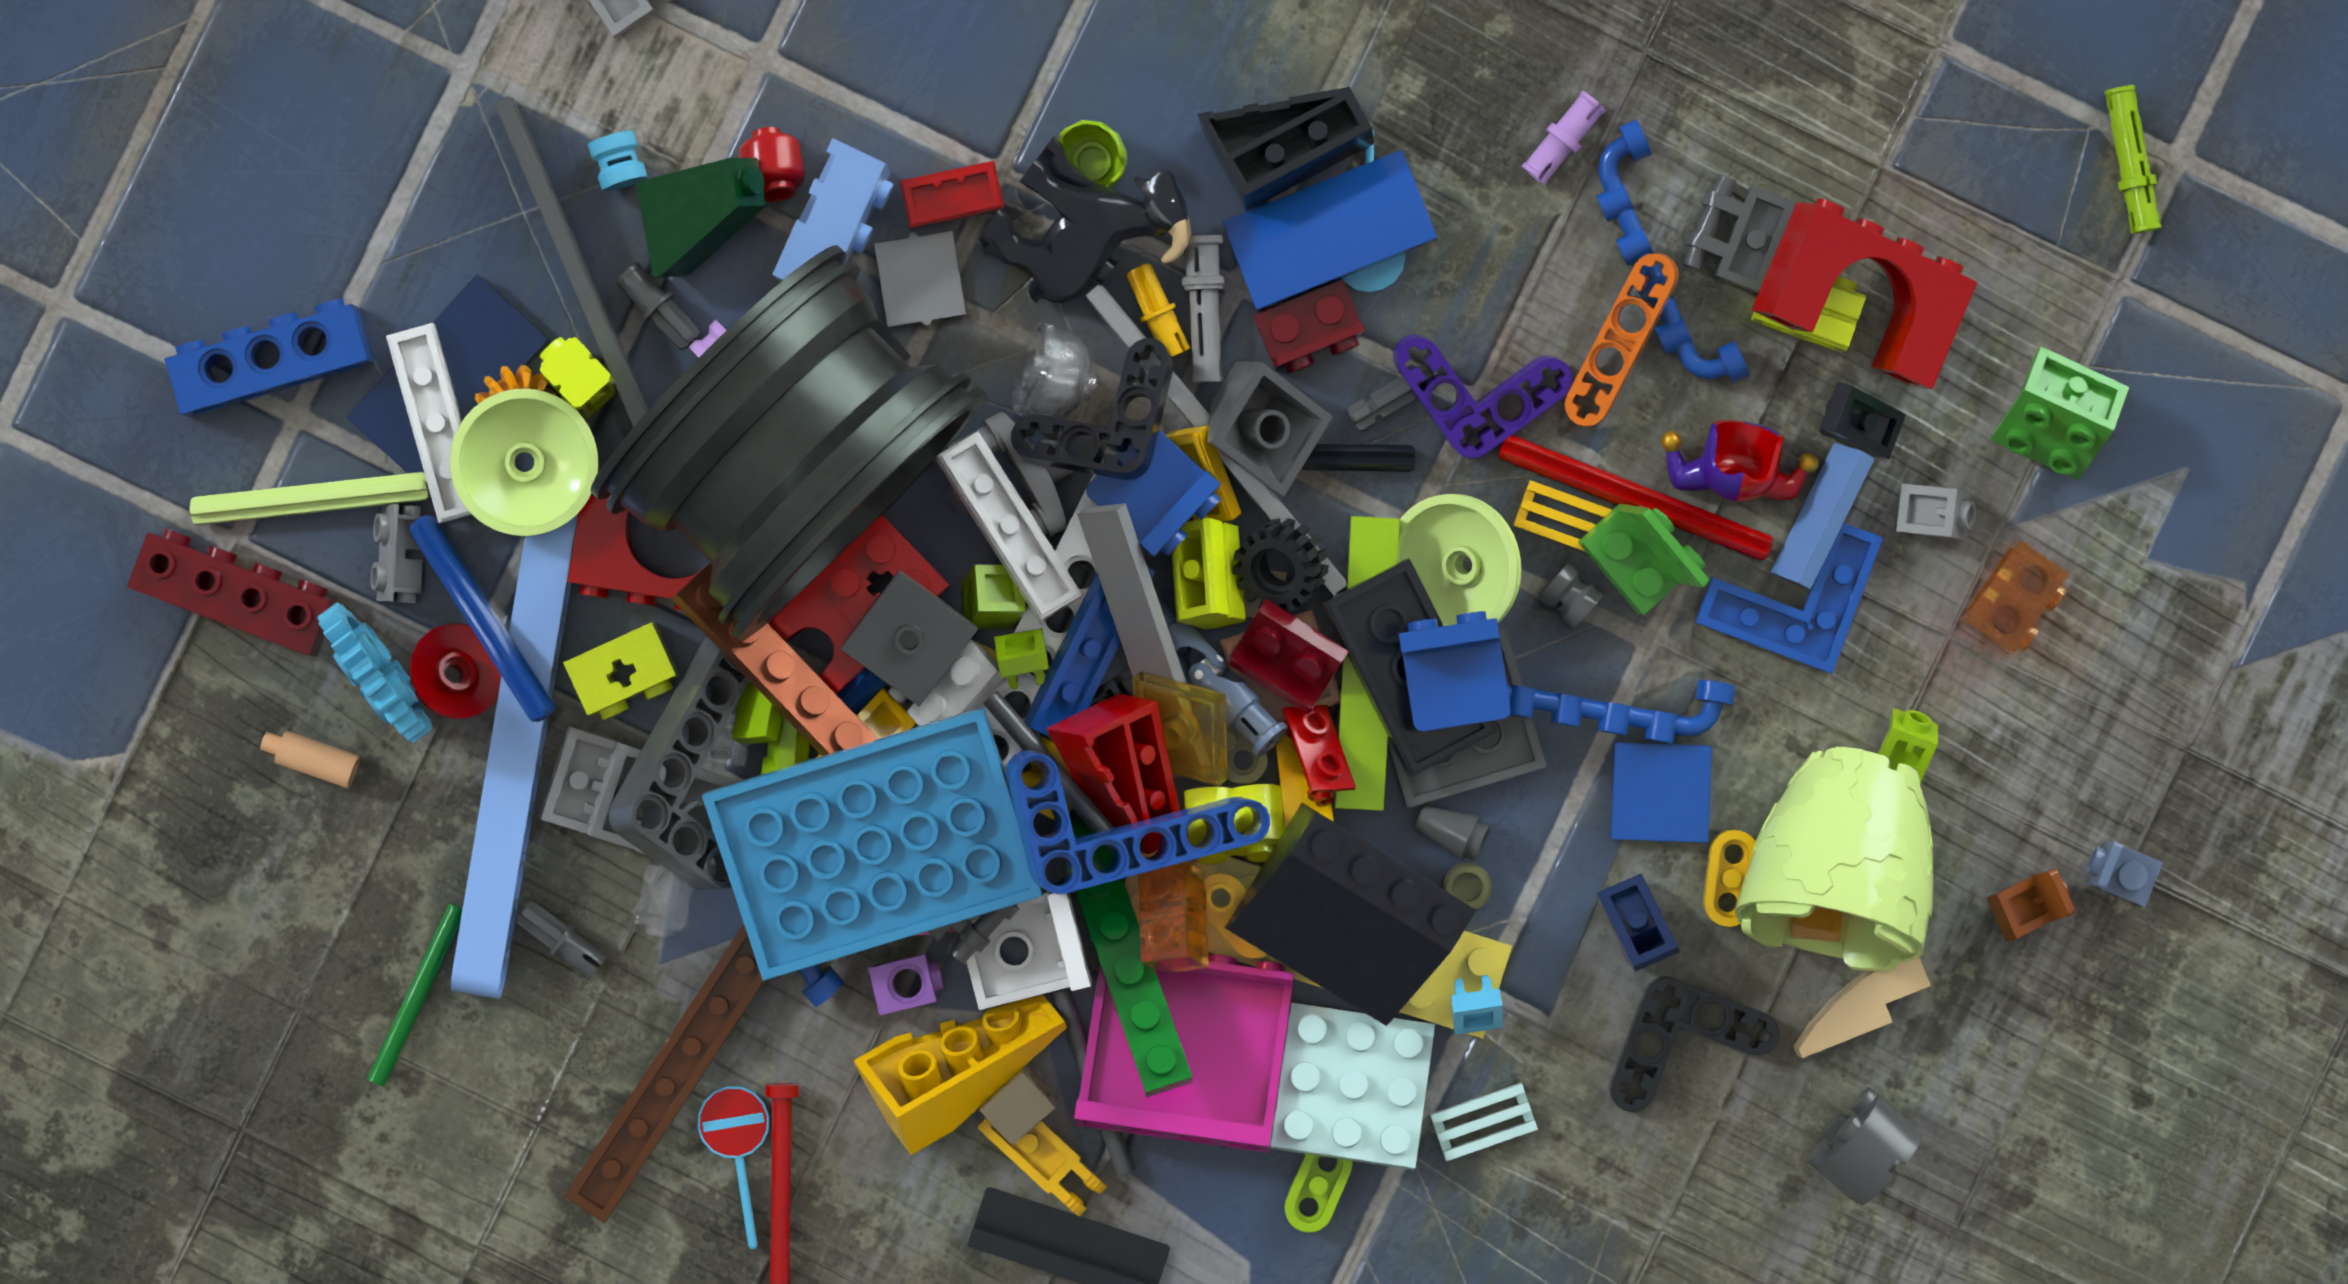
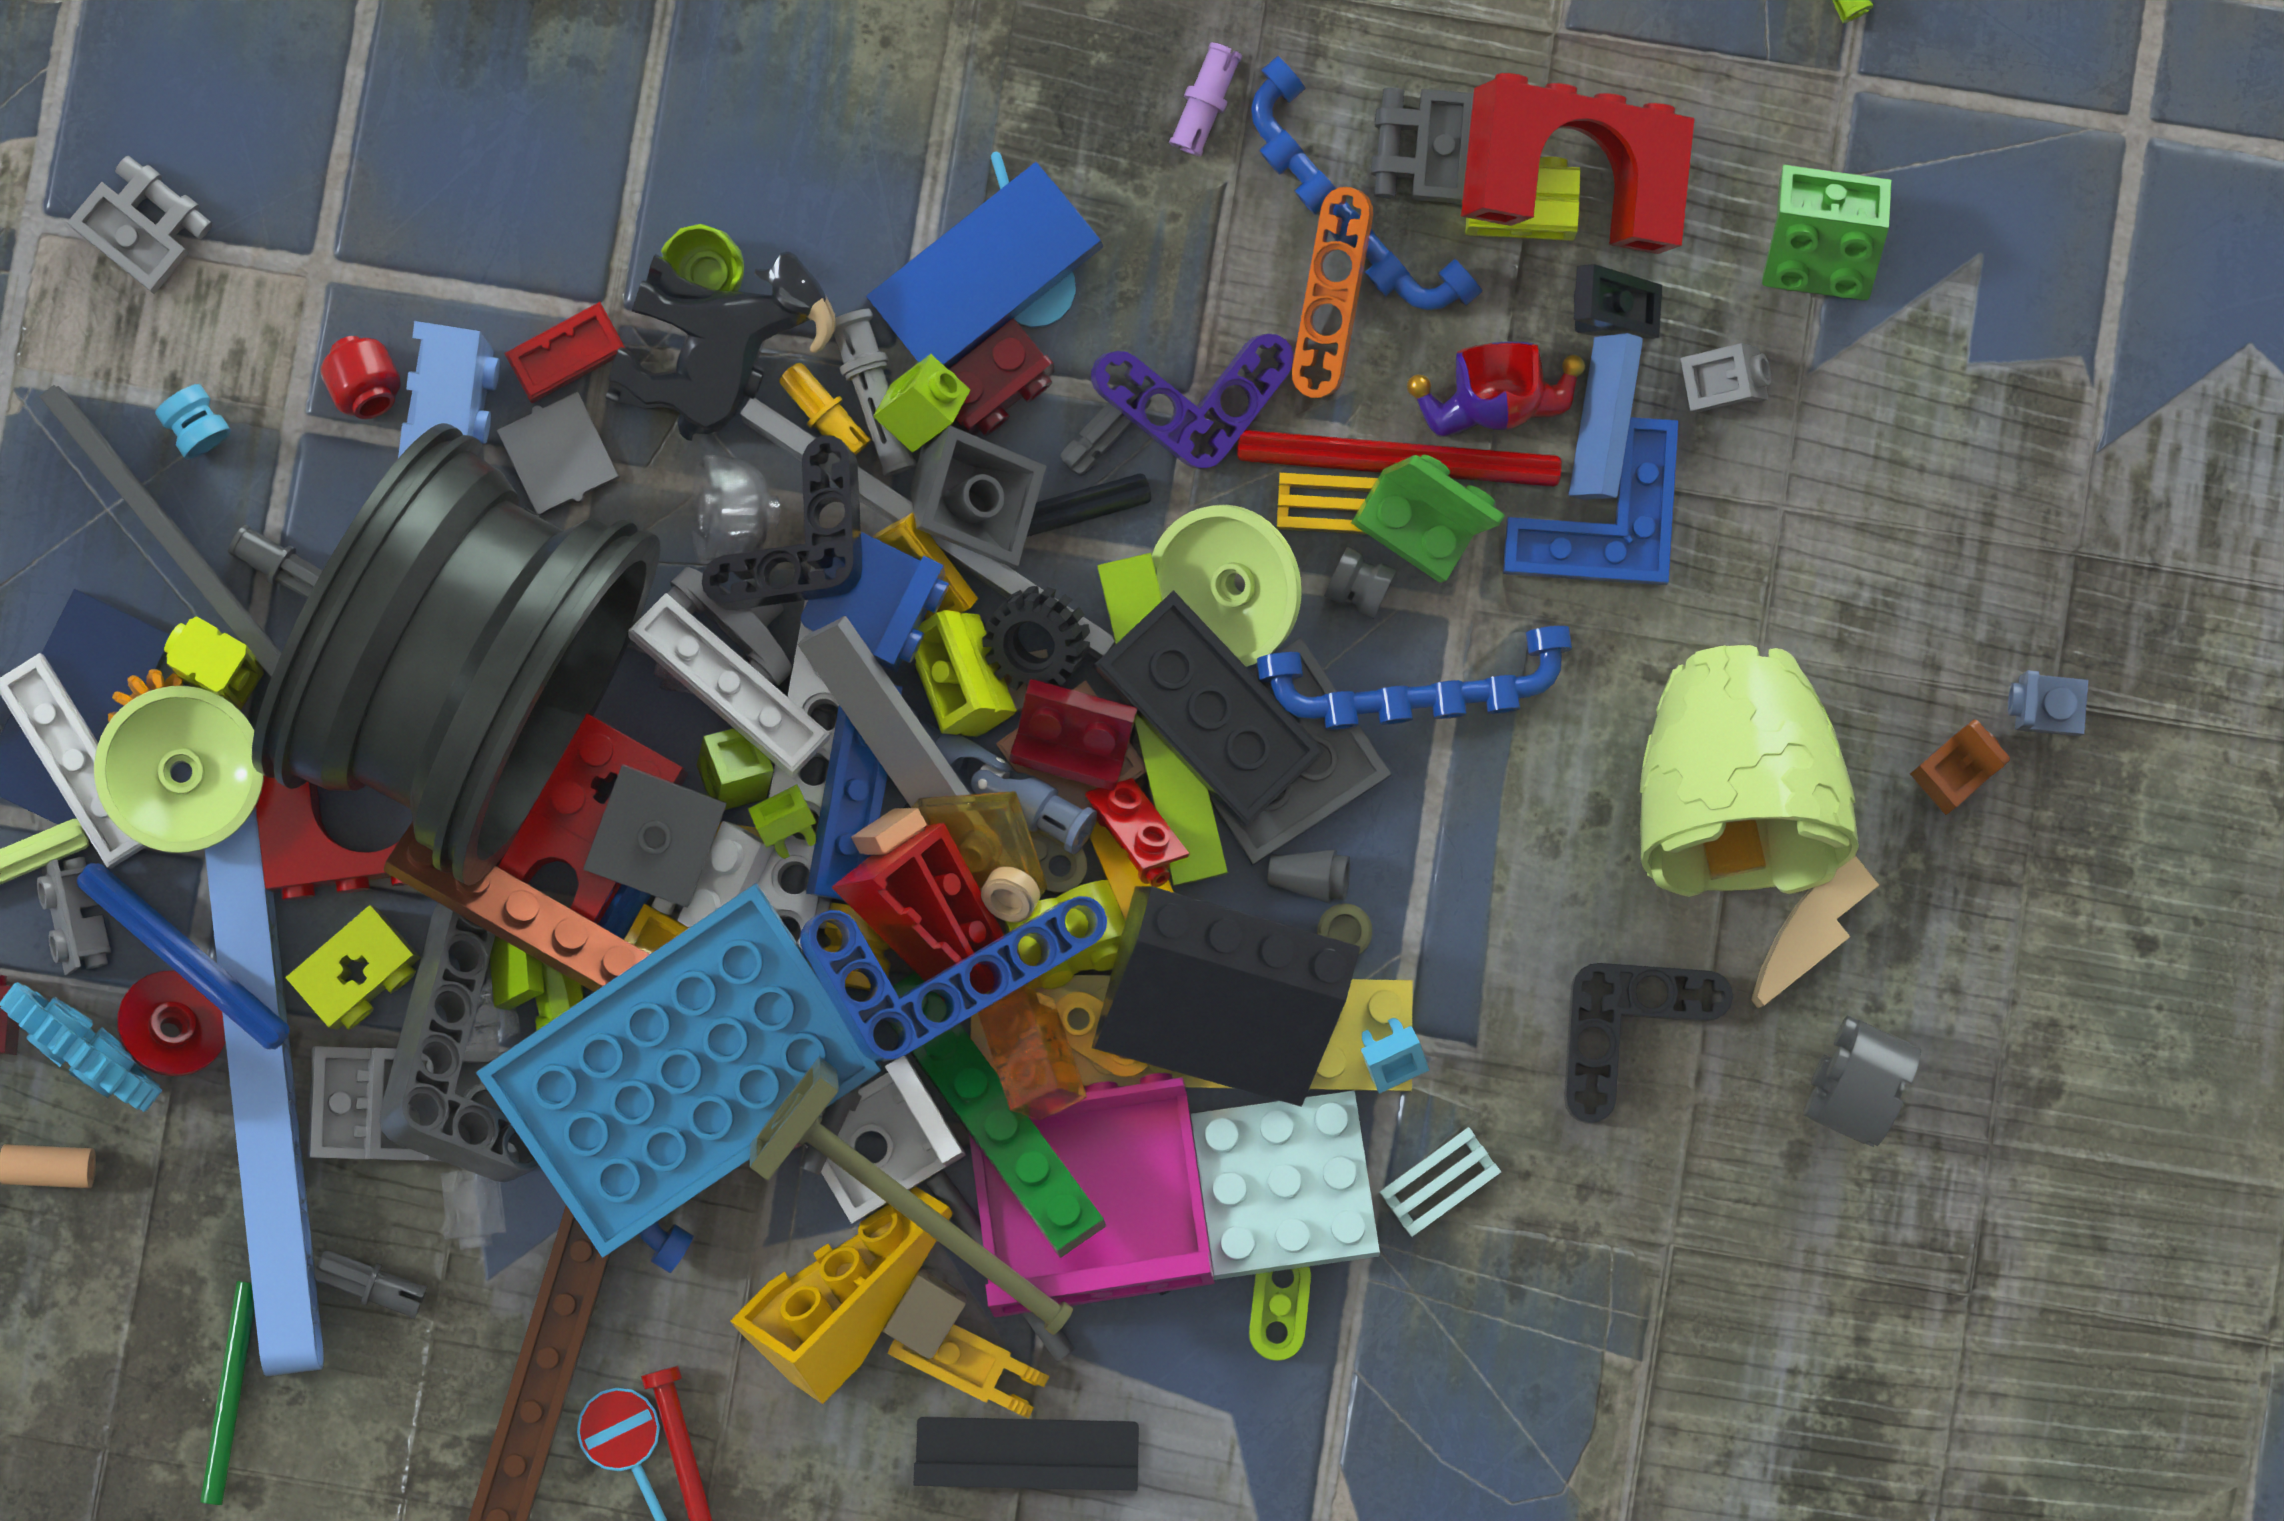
camera: 15 degrees left, 5 degrees down
(697, 211) = (294, 448): dark green slope -> none
(885, 991) = (737, 1220): medium lavender brick -> none
(961, 921) = (799, 1122): none -> olive tile
(1029, 741) = (811, 905): dark grey bar -> none
(1108, 693) = (889, 831): none -> light nougat tile
(1194, 776) = (1010, 894): none -> tan tile
(1243, 332) = (921, 403): none -> lime brick
(1285, 141) = (909, 188): black wedge -> none
(1455, 672) = (1258, 694): blue bracket -> none
(1638, 922) = (1541, 912): dark blue slope -> none
(1660, 792) = (1523, 766): blue tile -> none
(1725, 876) = (1620, 836): yellow plate -> none
(1910, 740) = (1775, 624): lime bracket -> none
(2005, 590) = (1828, 439): clear orange brick -> none

